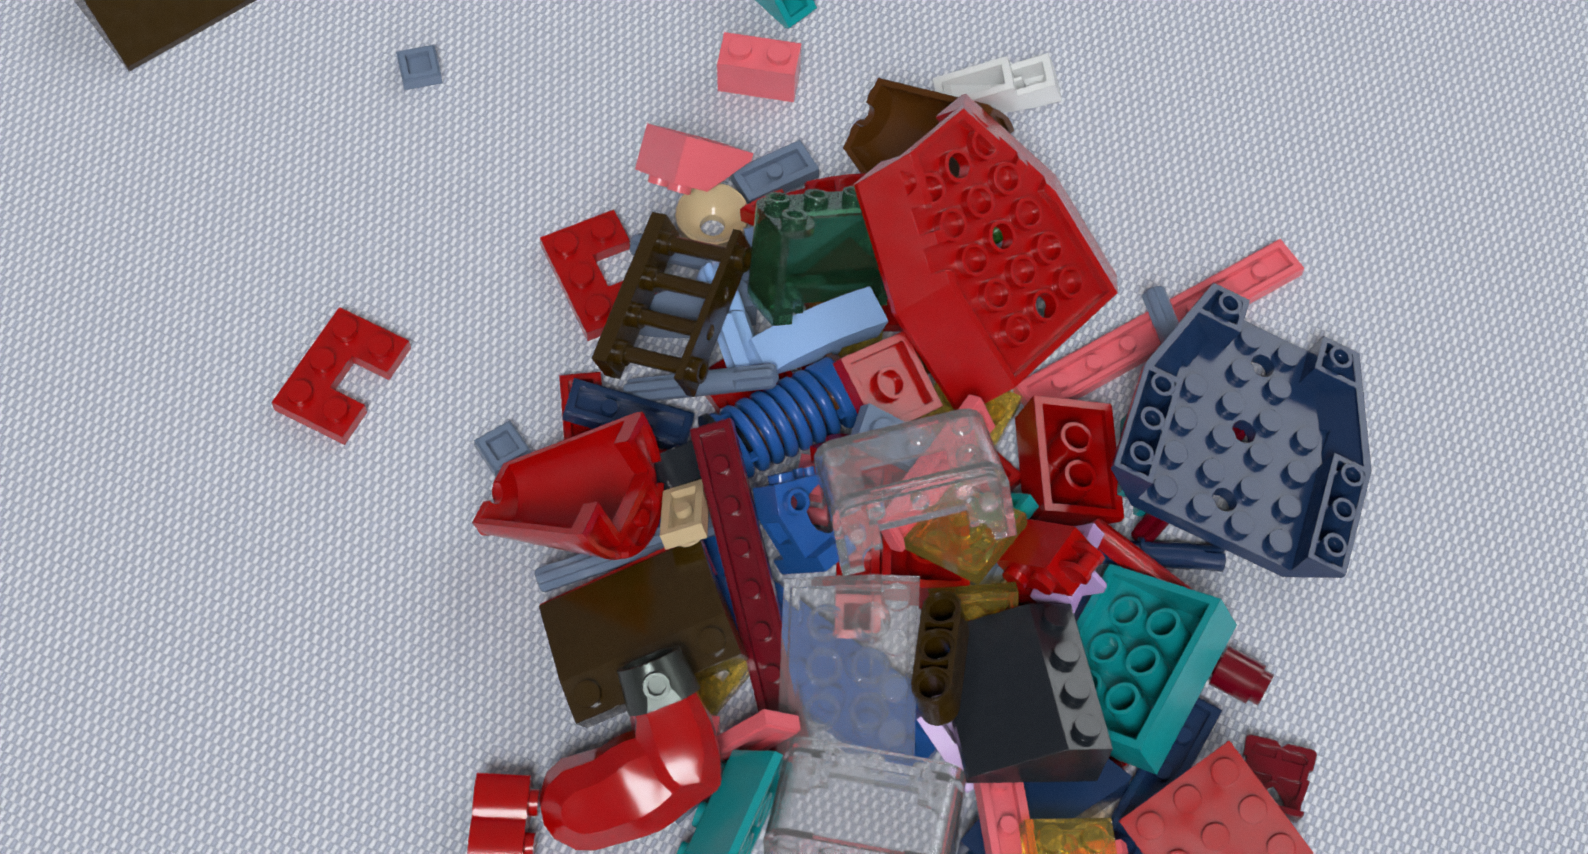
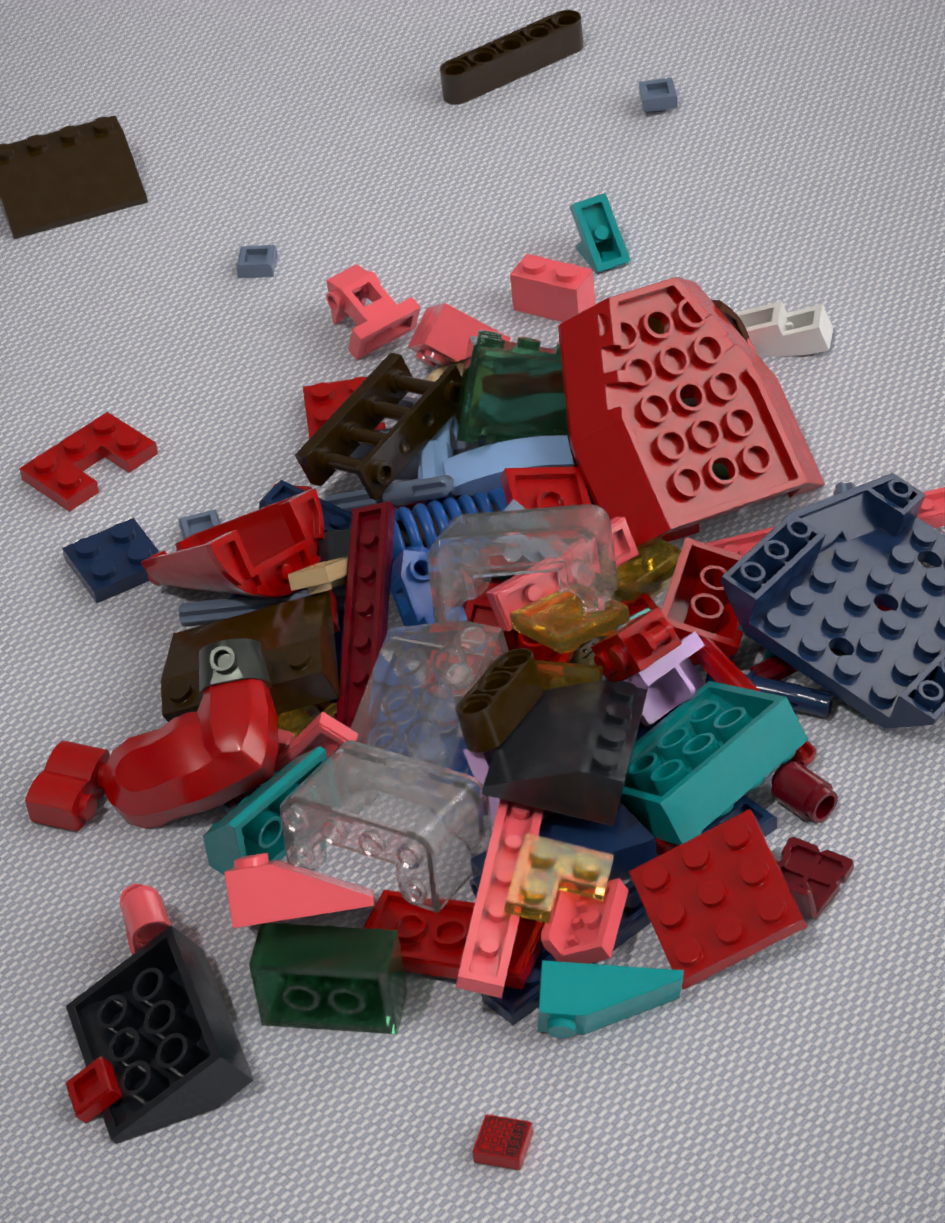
camera: 25 degrees right, 20 degrees down
(424, 506) = (111, 559): none -> dark blue plate
(592, 141) = (376, 322): none -> coral tile

